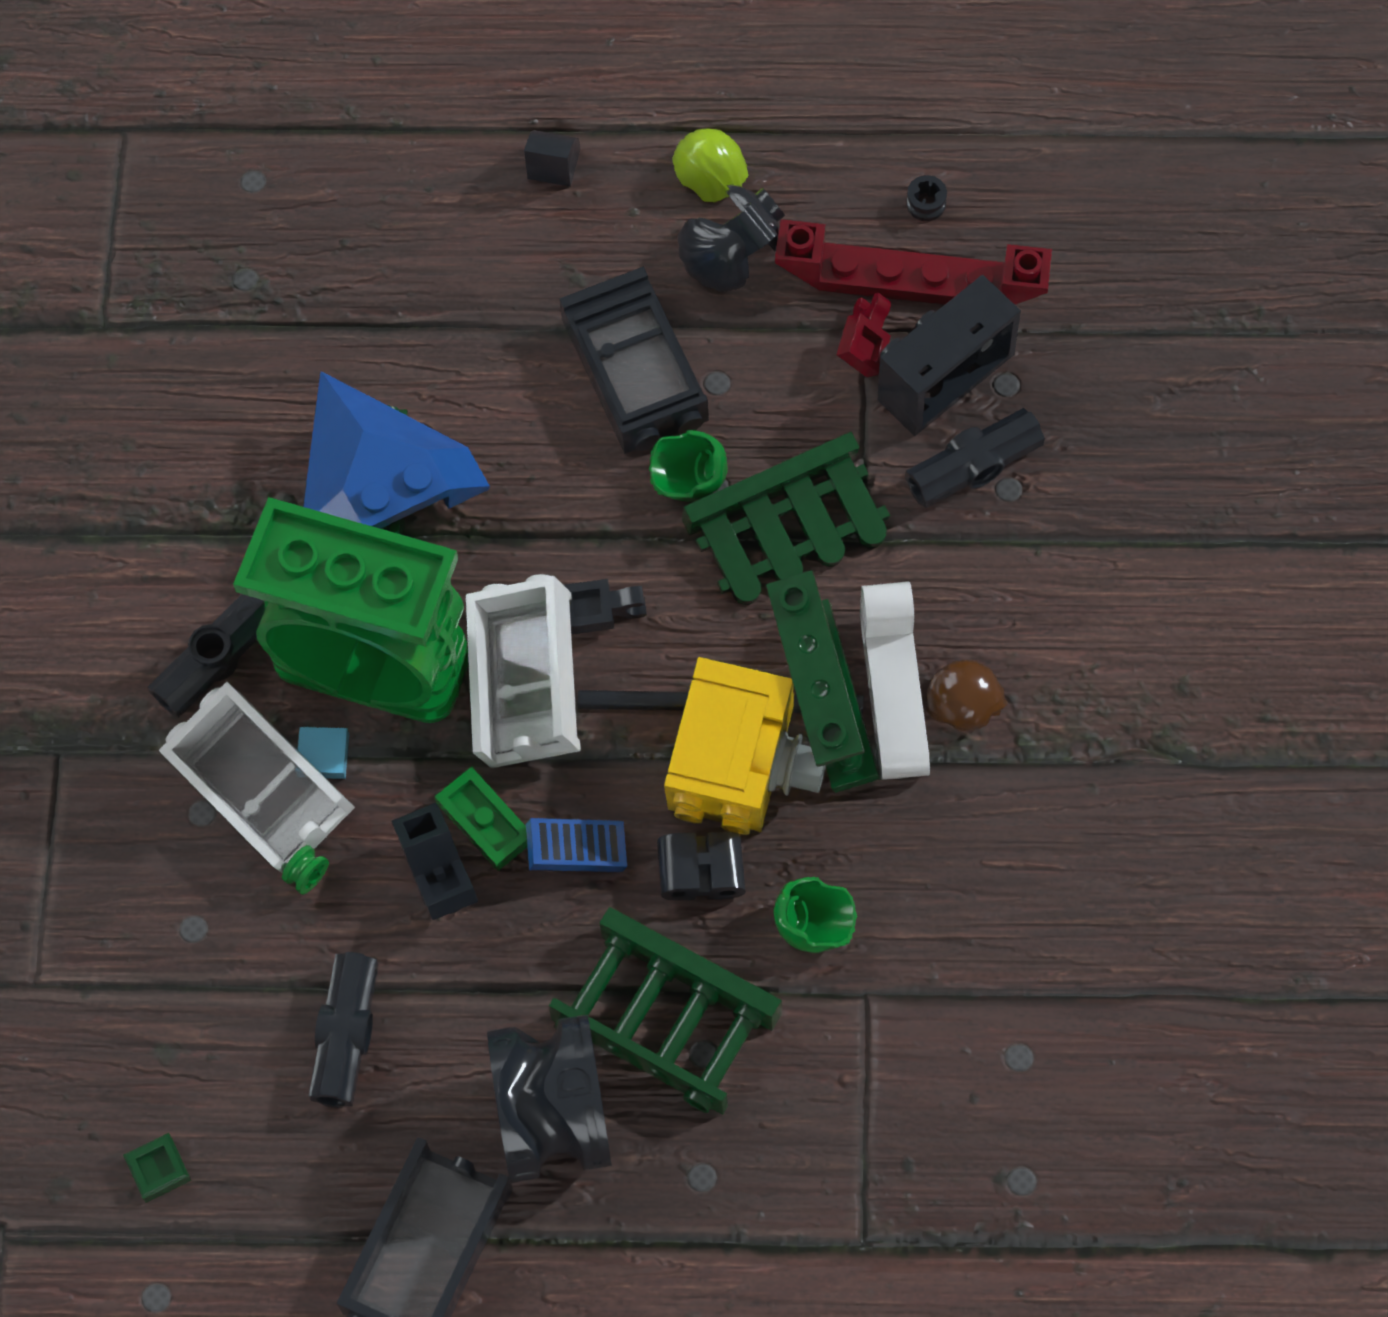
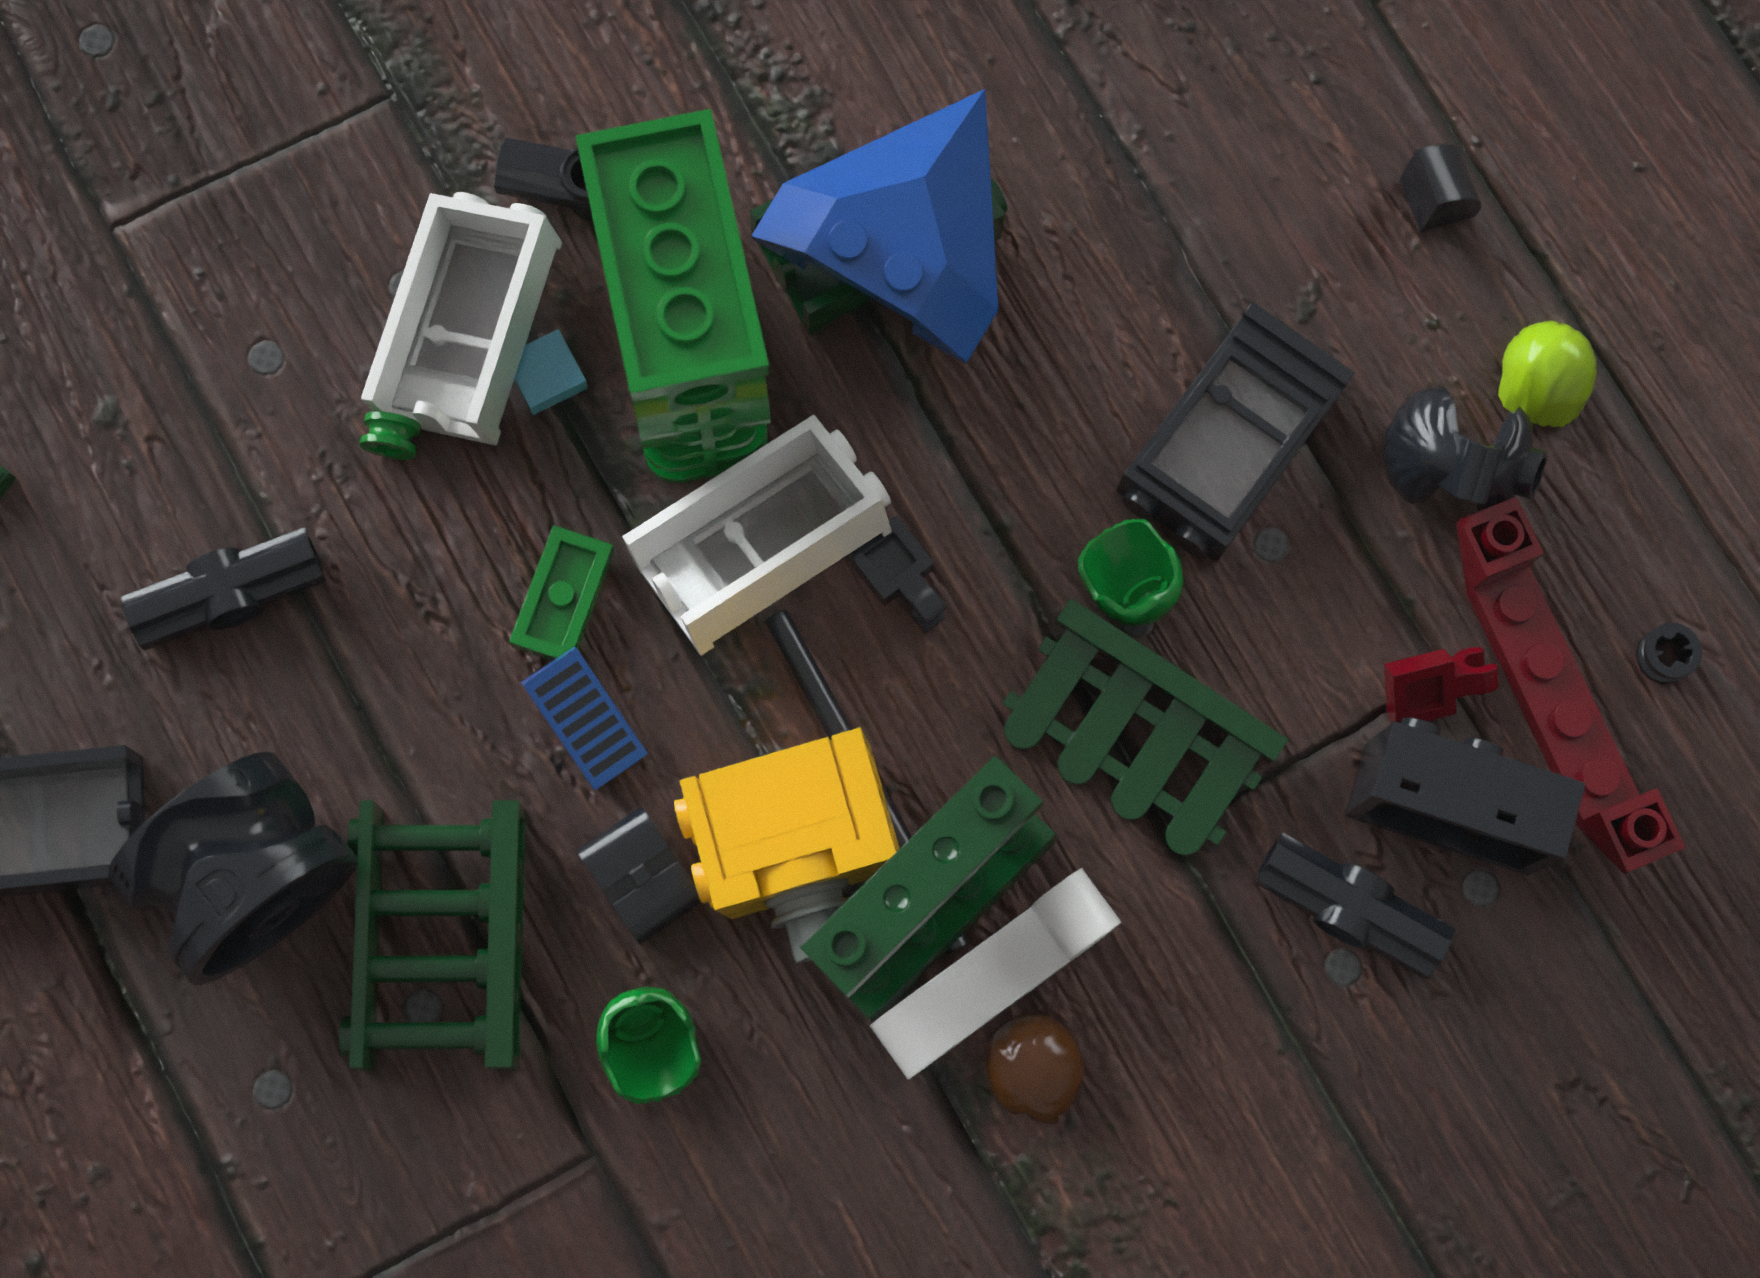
camera: 50 degrees right, 10 degrees up
(434, 861) = (472, 574): black brick -> none

